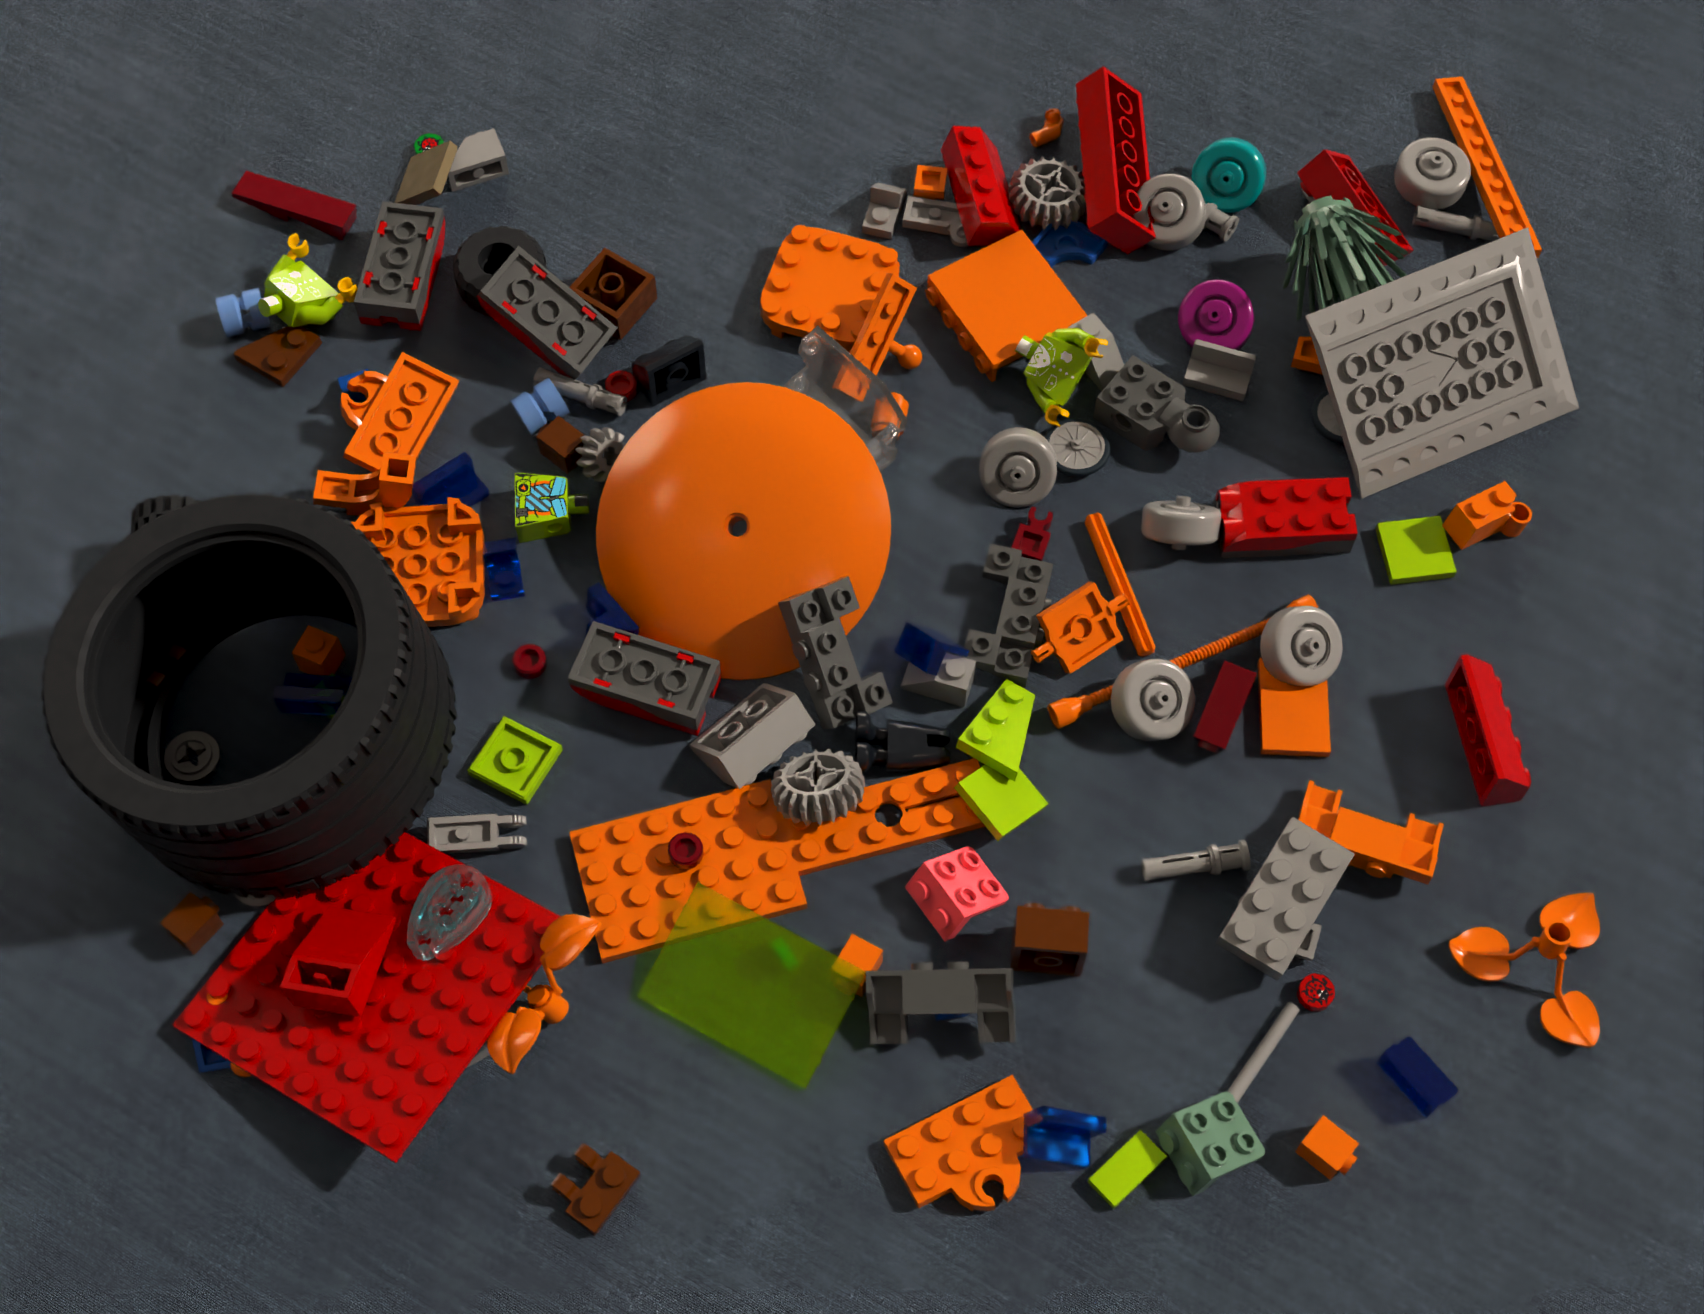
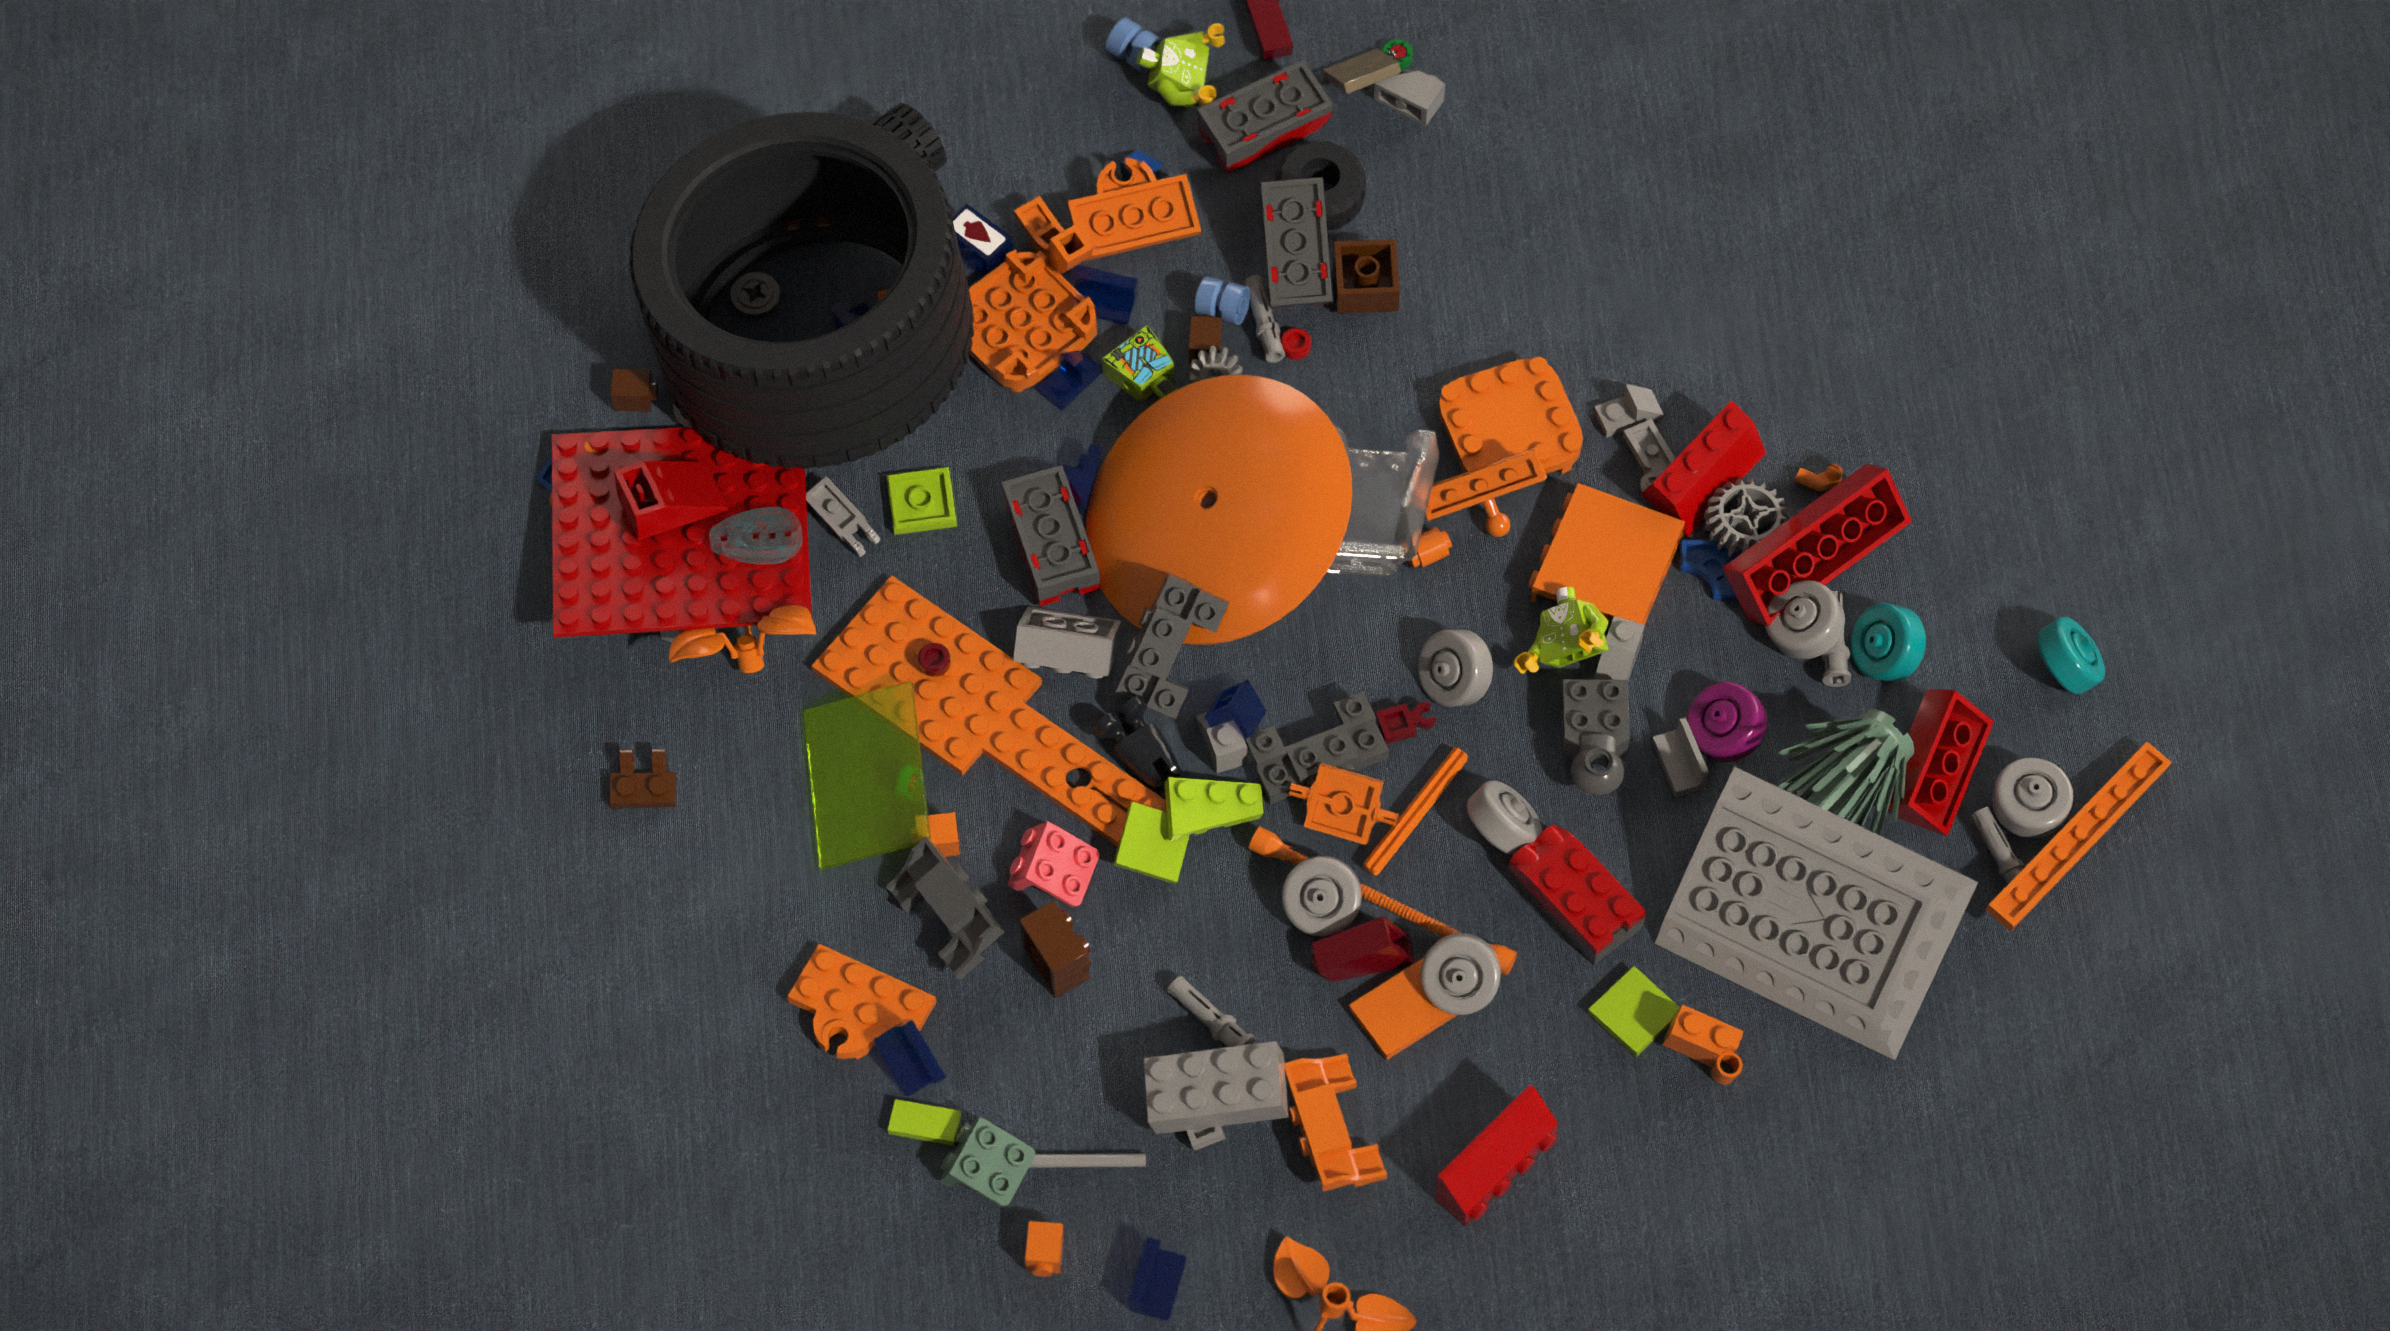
camera: 55 degrees right, 0 degrees up
(279, 353) = (1125, 96): reddish brown wing -> none
(529, 661) = (1008, 452): dark red tile -> none
(670, 369) = (1333, 364): black slope -> none
(818, 787) = (1054, 710): light grey gear -> none
(930, 182) = (1677, 425): orange tile -> none
(1079, 446) = (1517, 700): light grey wheel -> none
(1316, 992) = (1170, 1168): tile -> none
(1330, 75) = (2071, 655): none -> teal wheel

